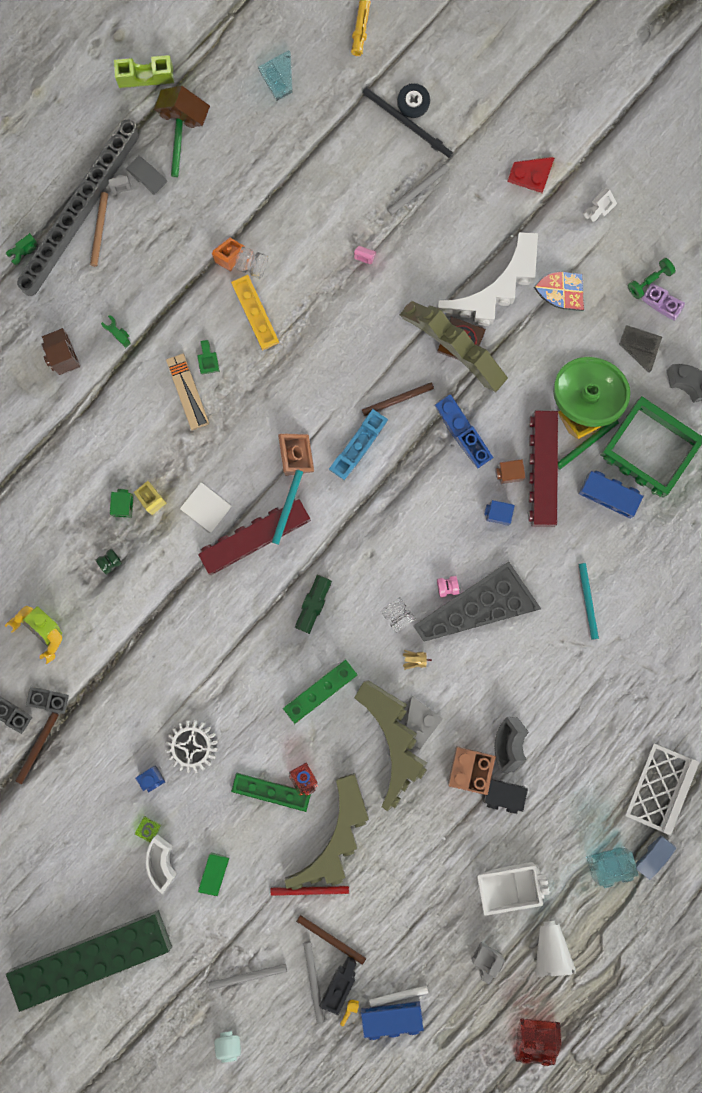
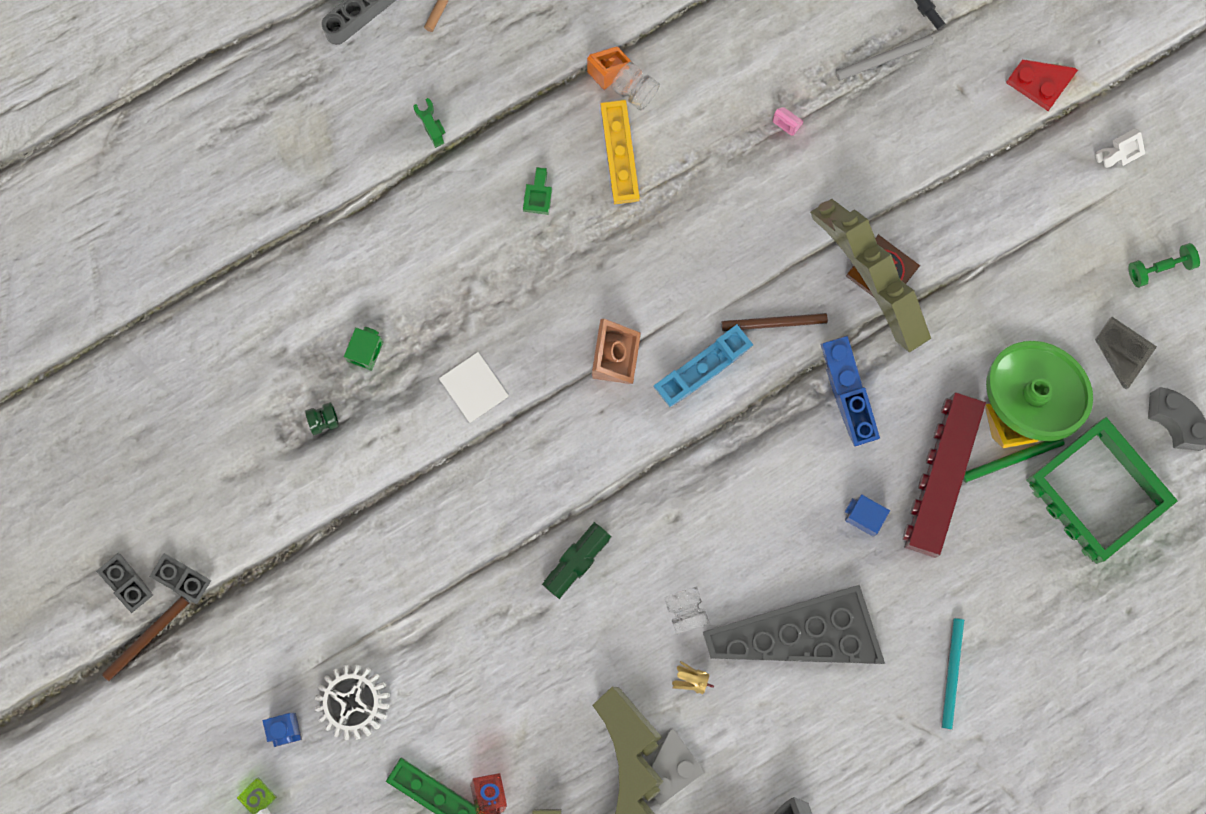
camera: 15 degrees right, 5 degrees down
(41, 626) = (205, 478): torso -> none
(59, 352) = (347, 126): reddish brown brick -> none
(149, 498) = (403, 352): light yellow slope -> none
(187, 391) = (498, 228): tan tile -> none
(251, 538) = (525, 446): dark red brick -> none
(287, 507) = (582, 419): teal bar -> none
(320, 691) = (549, 681): green fence -> none
(452, 584) = (772, 595): bright pink wheel -> none
(502, 291) = (958, 221): white arch -> none
(510, 471) = (897, 464): dark orange brick -> none
(562, 290) = (1038, 245): shield -> none
(611, 494) = (1026, 537): blue brick -> none
(663, 302) = (1170, 302): lavender slope -> none

